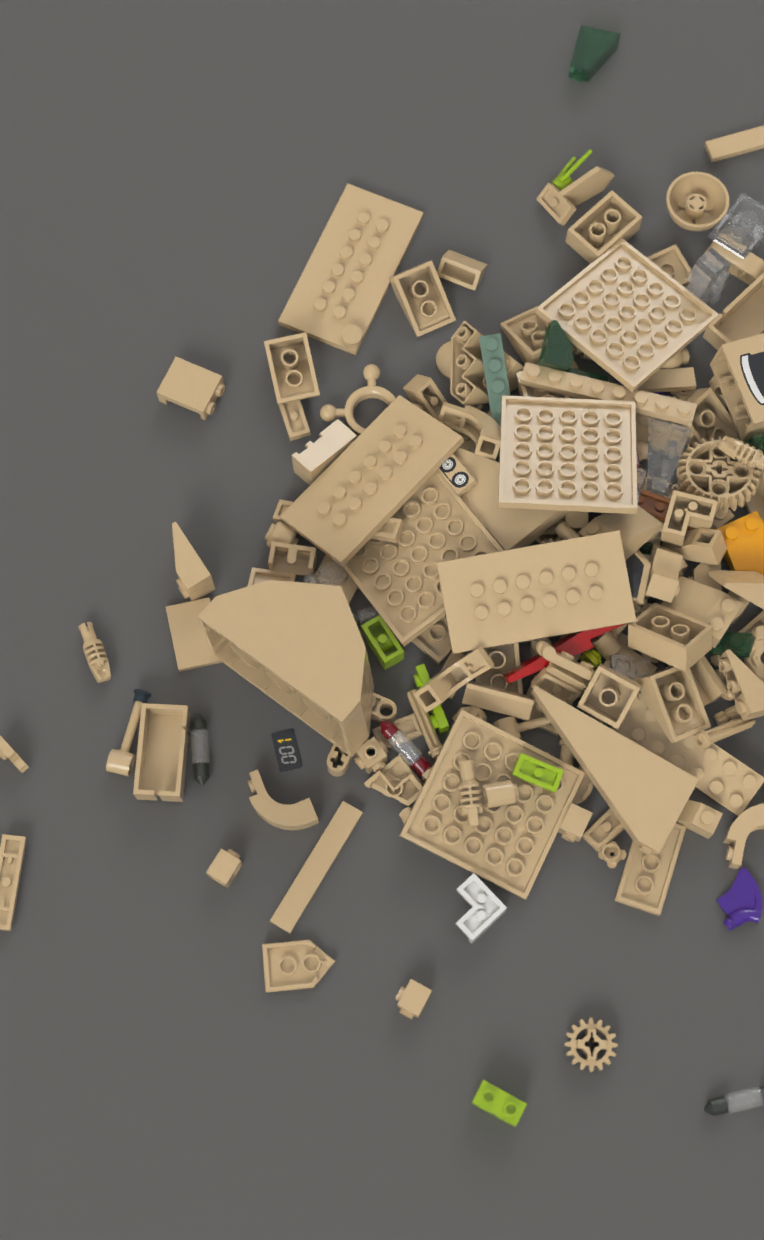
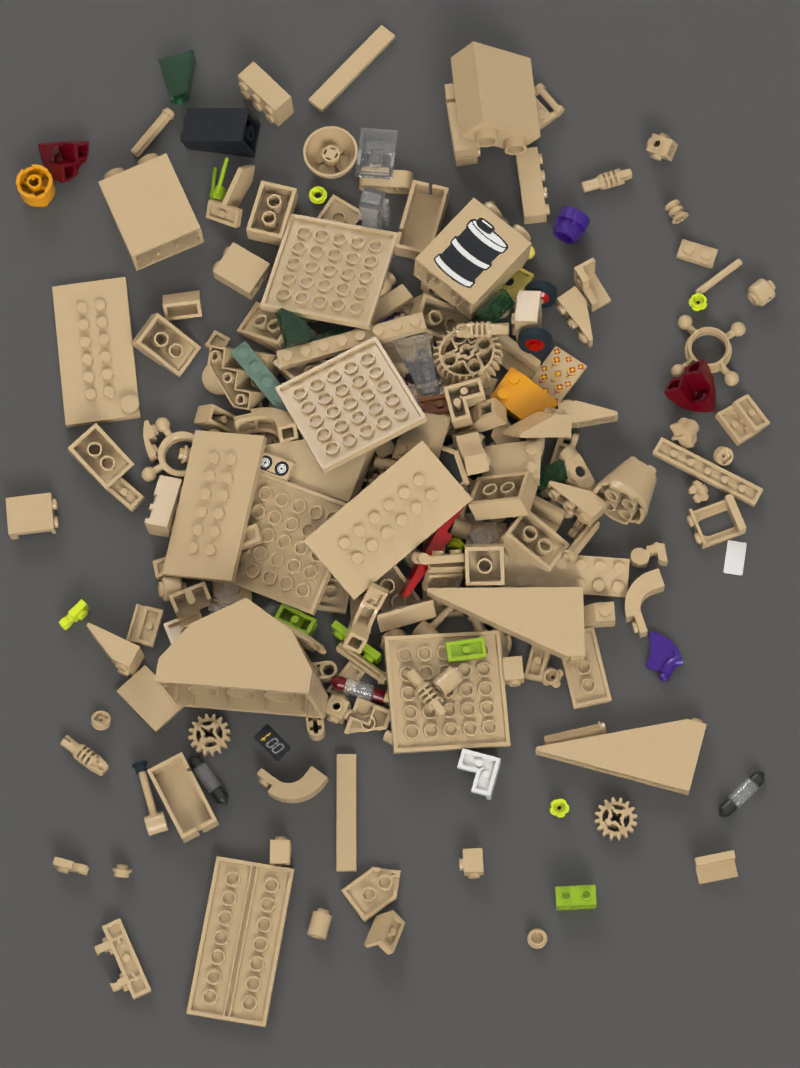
camera: 25 degrees left, 0 degrees up
(57, 790) = (122, 871): none -> tan plate
(129, 936) = (240, 941): none -> tan plate
(132, 627) = (100, 720): none -> tan tile
(175, 507) = (77, 613): none -> neon yellow plate
(219, 966) = (319, 924): none -> tan brick
(233, 558) = (145, 625): none -> tan plate
(236, 701) = (214, 728): none -> tan gear
(279, 1017) = (385, 931): none -> tan panel
(350, 379) = (150, 439): none -> tan slope
(374, 412) = (184, 454): none -> tan plate
(377, 662) = (306, 641): none -> tan tile
(390, 80) = (36, 186): none -> light orange brick
(432, 1121) = (537, 938): none -> tan plate
(433, 70) = (64, 158): none -> dark red brick
(477, 321) = (218, 339): none -> tan plate
(485, 162) = (150, 210): none -> tan brick
(533, 92) = (152, 132): none -> tan axle
(538, 1002) = (554, 807): none -> neon yellow plate
(540, 268) = (241, 270): none -> tan brick
(600, 928) = (583, 732): none -> tan axle
(601, 125) = (221, 131): none -> black slope
(660, 232) = (318, 190): none -> neon yellow plate
(666, 112) = (265, 94): none -> tan brick
(667, 1163) = (715, 867): none -> tan panel
(669, 1000) = (651, 755): none -> tan slope

